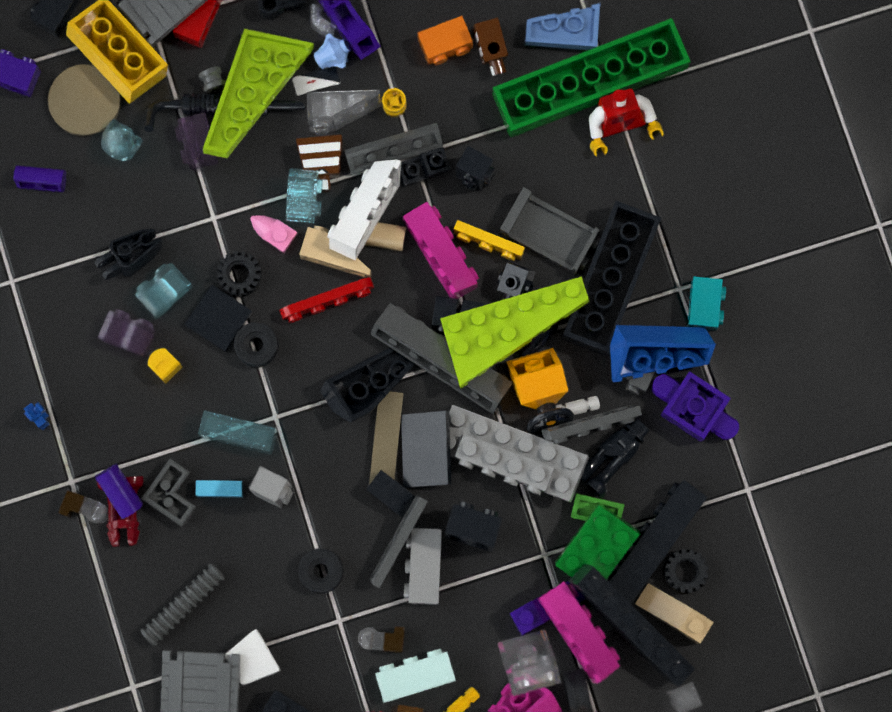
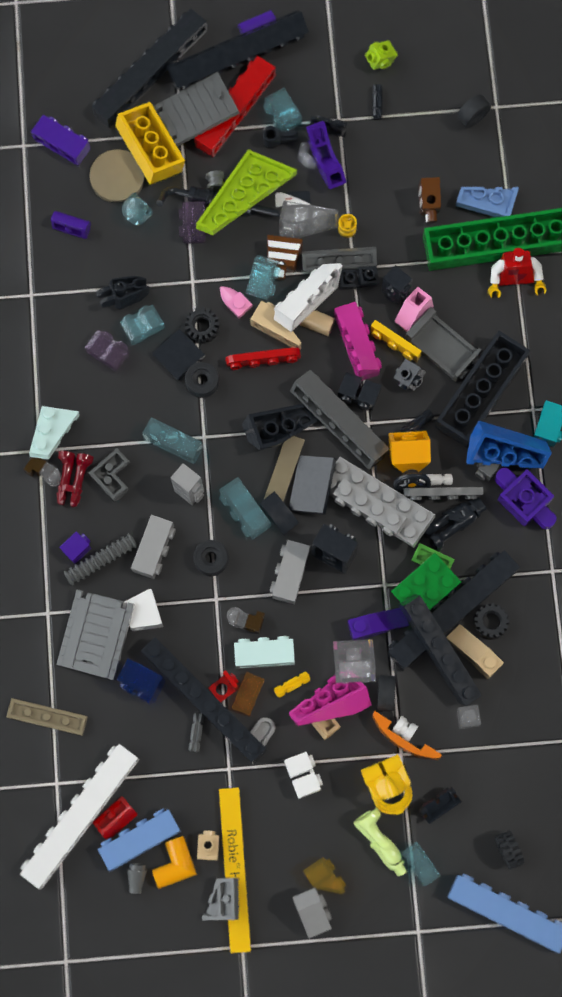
camera: 15 degrees right, 5 degrees down
(37, 414) = (26, 394): blue plate -> none
(79, 454) = (50, 429): none -> light aqua wing
(119, 491) = (72, 461): dark purple brick -> none
(148, 596) = (76, 547): none -> dark purple brick
(163, 364) = (129, 378): yellow piece -> none
(215, 488) = (148, 479): medium azure piece -> none
(246, 574) = (153, 547): none -> light grey brick
(332, 52) = (309, 180): light blue rock -> none
(348, 499) = (244, 508): none -> clear light blue brick
(398, 540) = (272, 550): dark grey tile -> none
(445, 41) = (396, 189): orange brick -> none
(499, 329) = (390, 405): lime wing -> none
(502, 194) = (413, 308): none -> bright pink slope
(579, 633) = (397, 645): dark pink wedge -> none

